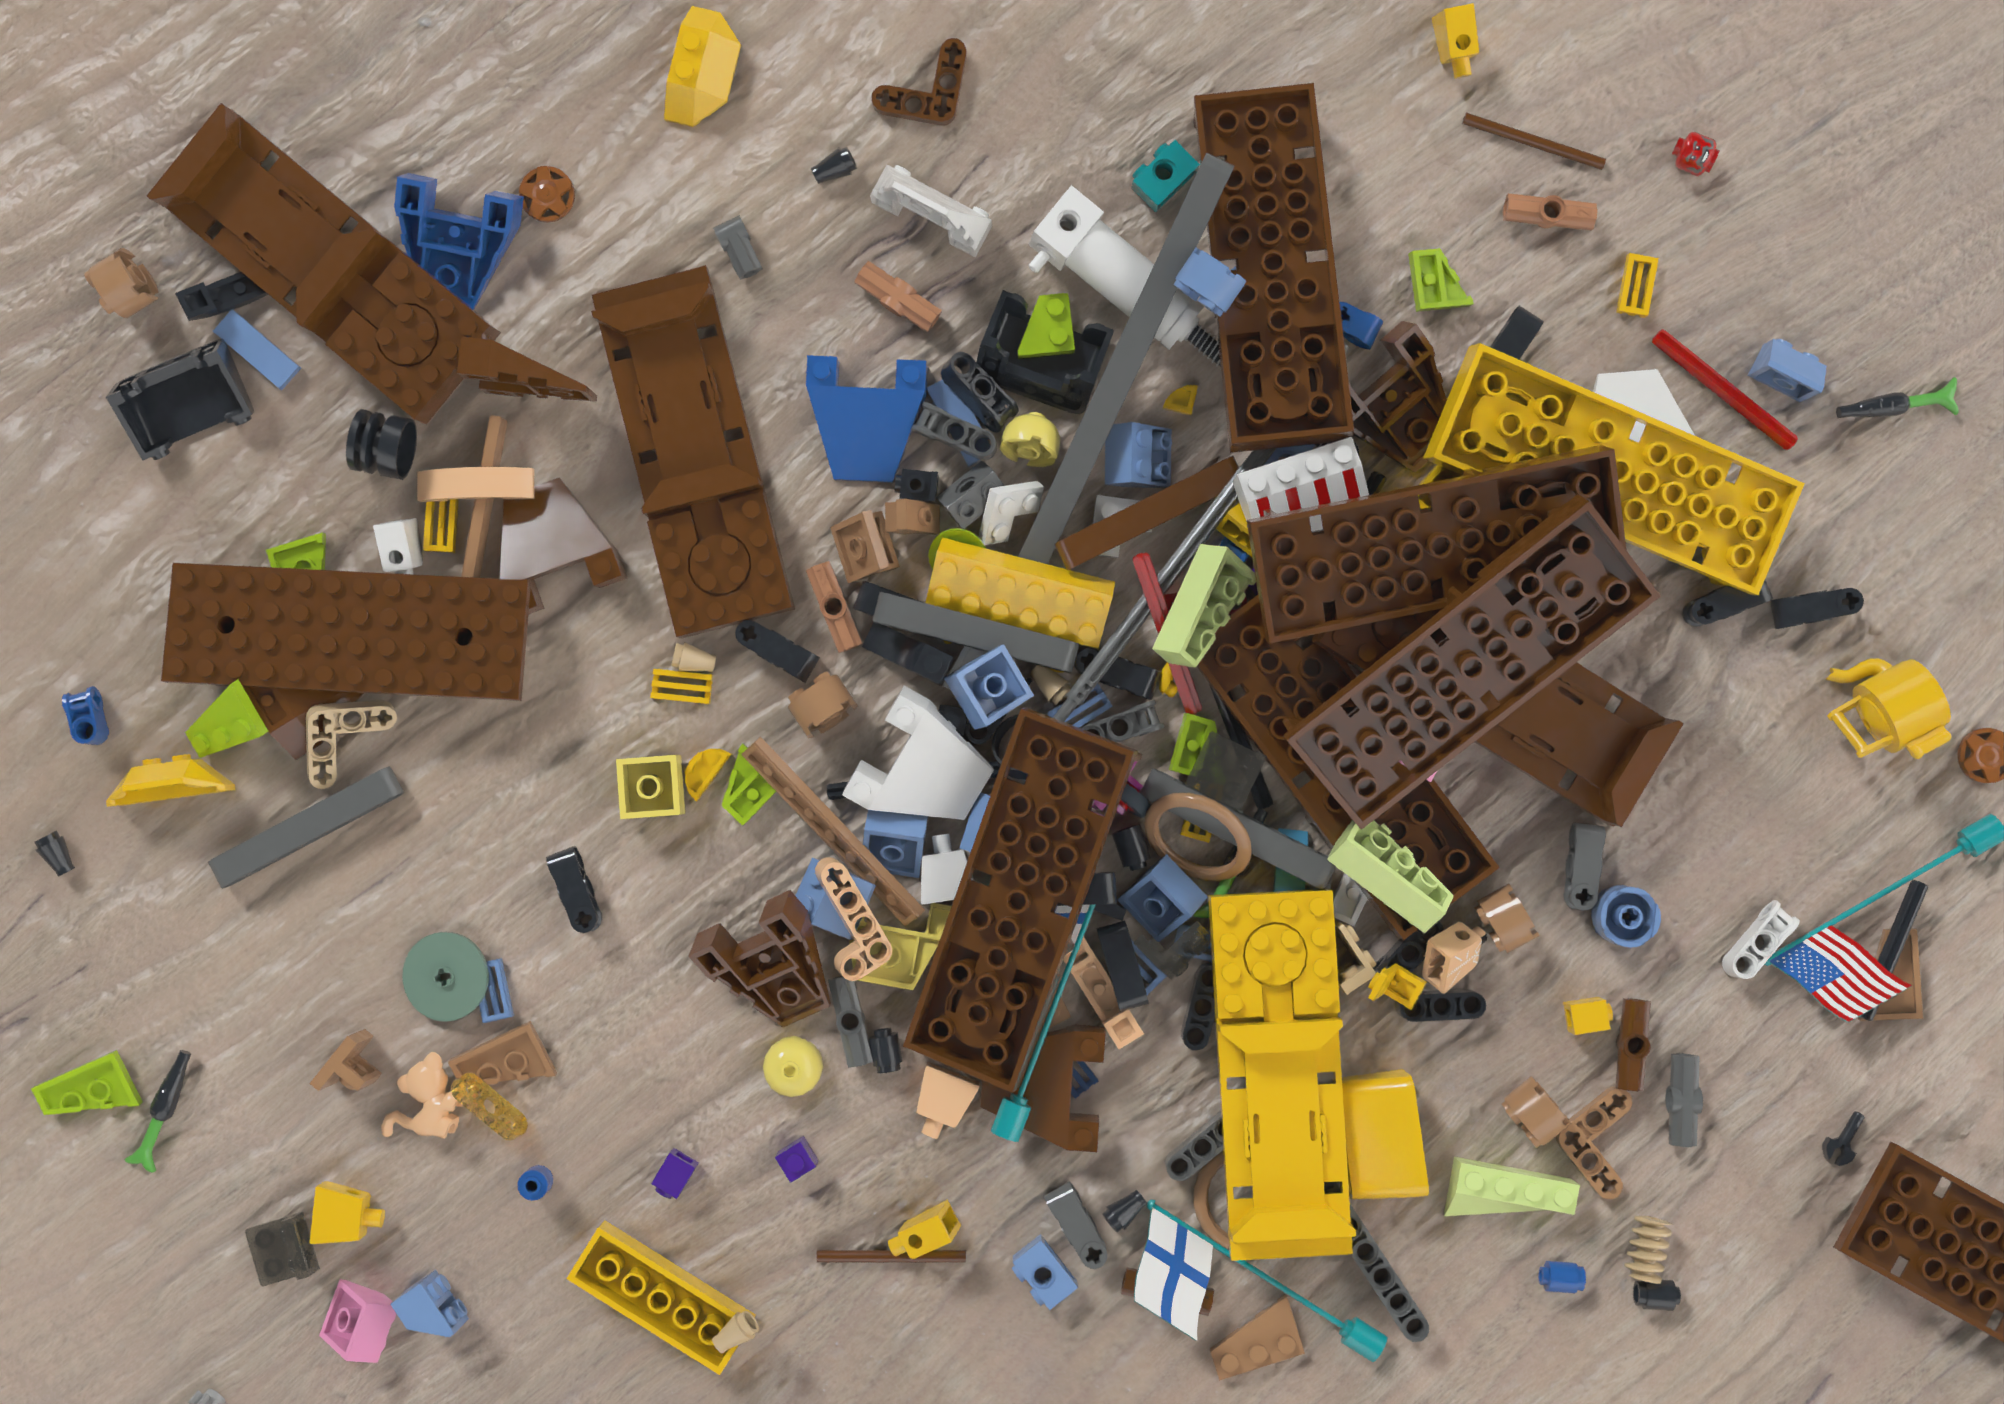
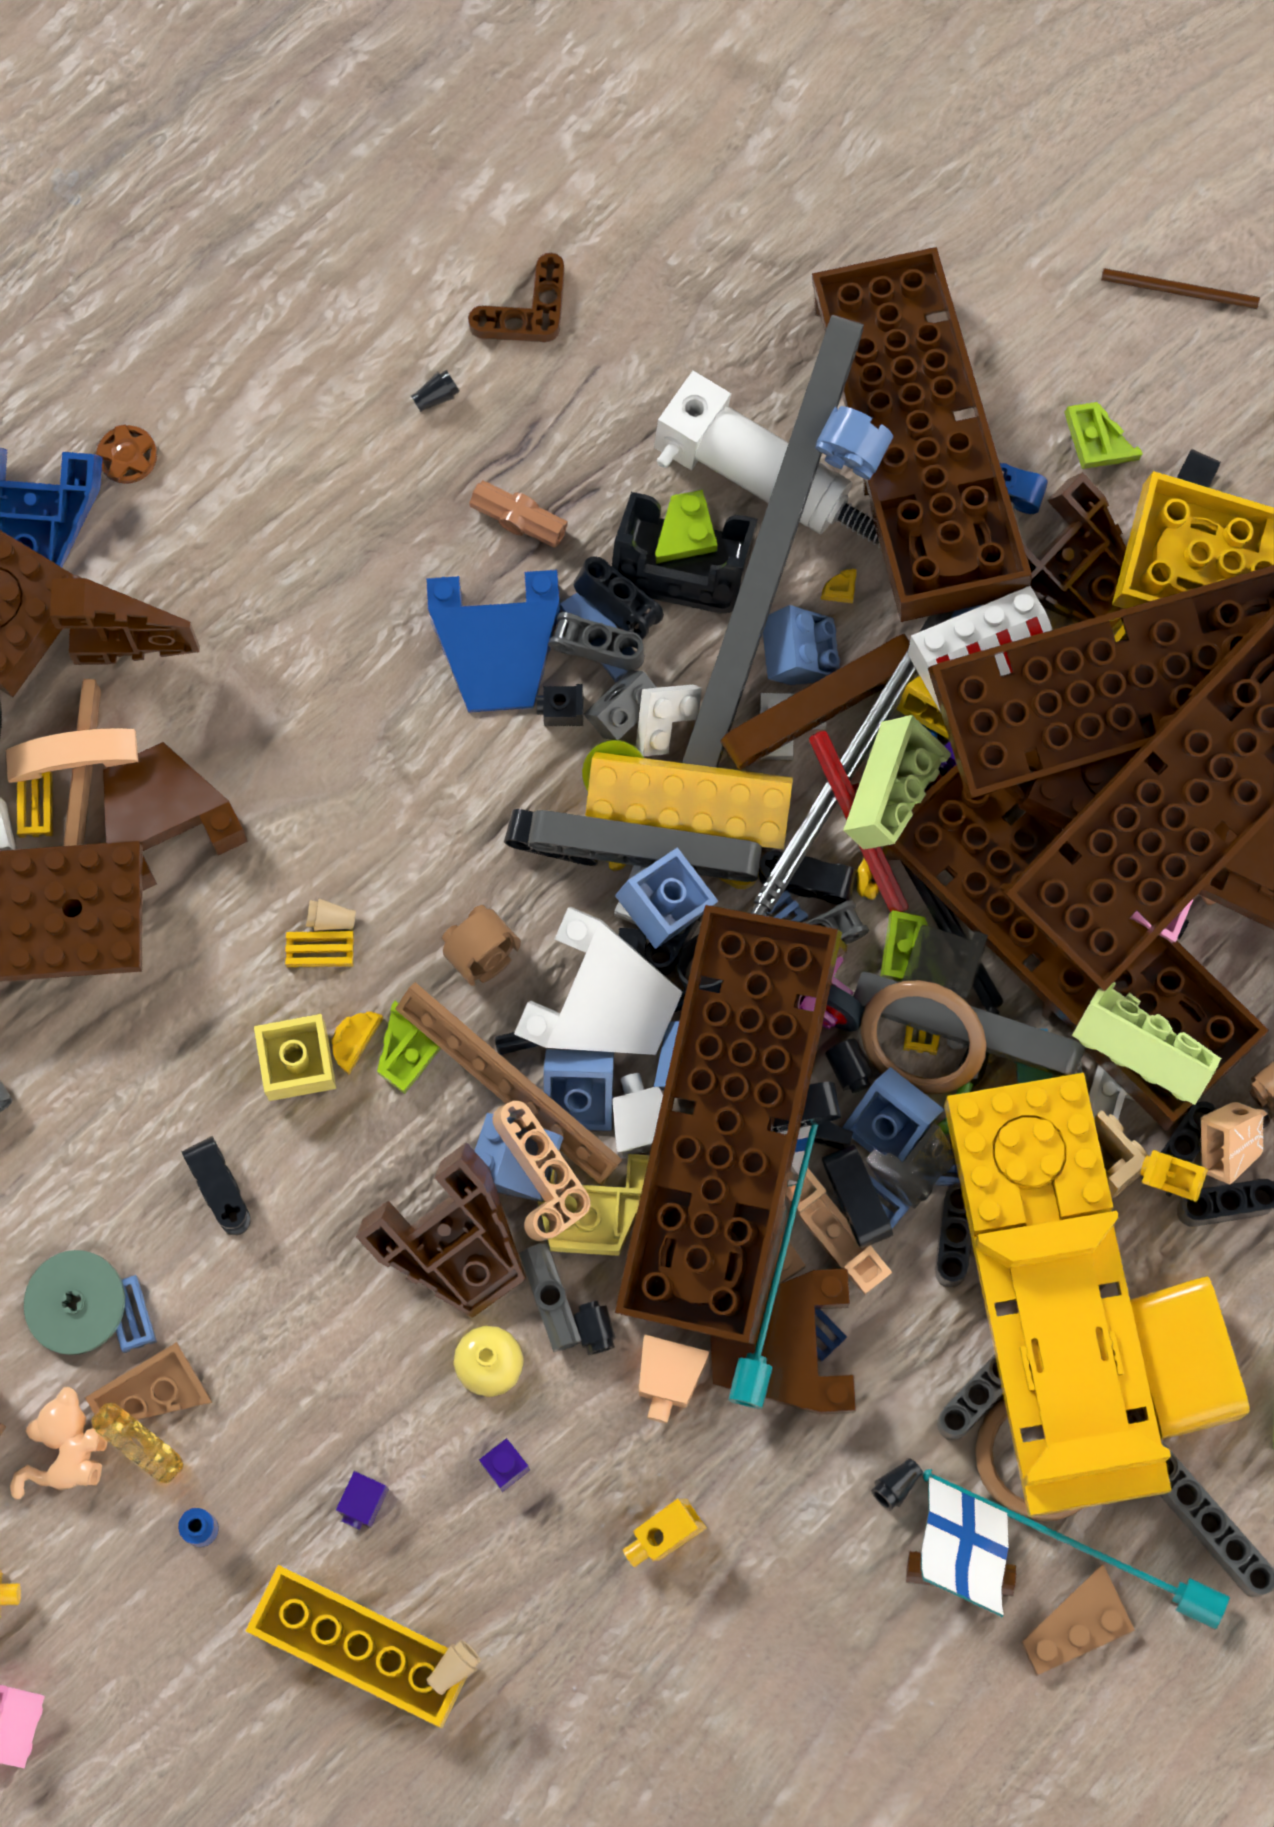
camera: 10 degrees left, 15 degrees down
(431, 1307) = (79, 1685): medium blue slope -> none
(700, 67) = (282, 312): yellow wedge -> none
(702, 492) = (325, 737): reddish brown piece -> none
(736, 242) = (336, 476): dark grey piece -> none
(778, 650) = (423, 894): black piece -> none
(826, 589) = (475, 825): nougat piece -> none
(864, 546) = (509, 772): medium nougat bracket -> none
(886, 1256) = (628, 1572): reddish brown piece -> none
(908, 653) = (584, 883): black arch -> none
(912, 517) = (559, 736): medium nougat brick -> none
(965, 226) = (508, 397): white wedge -> none
(1031, 438) = (681, 642): light yellow cylinder -> none
(1037, 1255) = (805, 1546): medium blue brick -> none
(1051, 684) = (733, 895): tan cone -> none
(1077, 1224) = (843, 1505): dark grey piece -> none
(1157, 191) = (785, 378): teal brick -> none
(1452, 27) = (1081, 193): yellow torso -> none
(1568, 213) = (1190, 355): nougat piece -> none

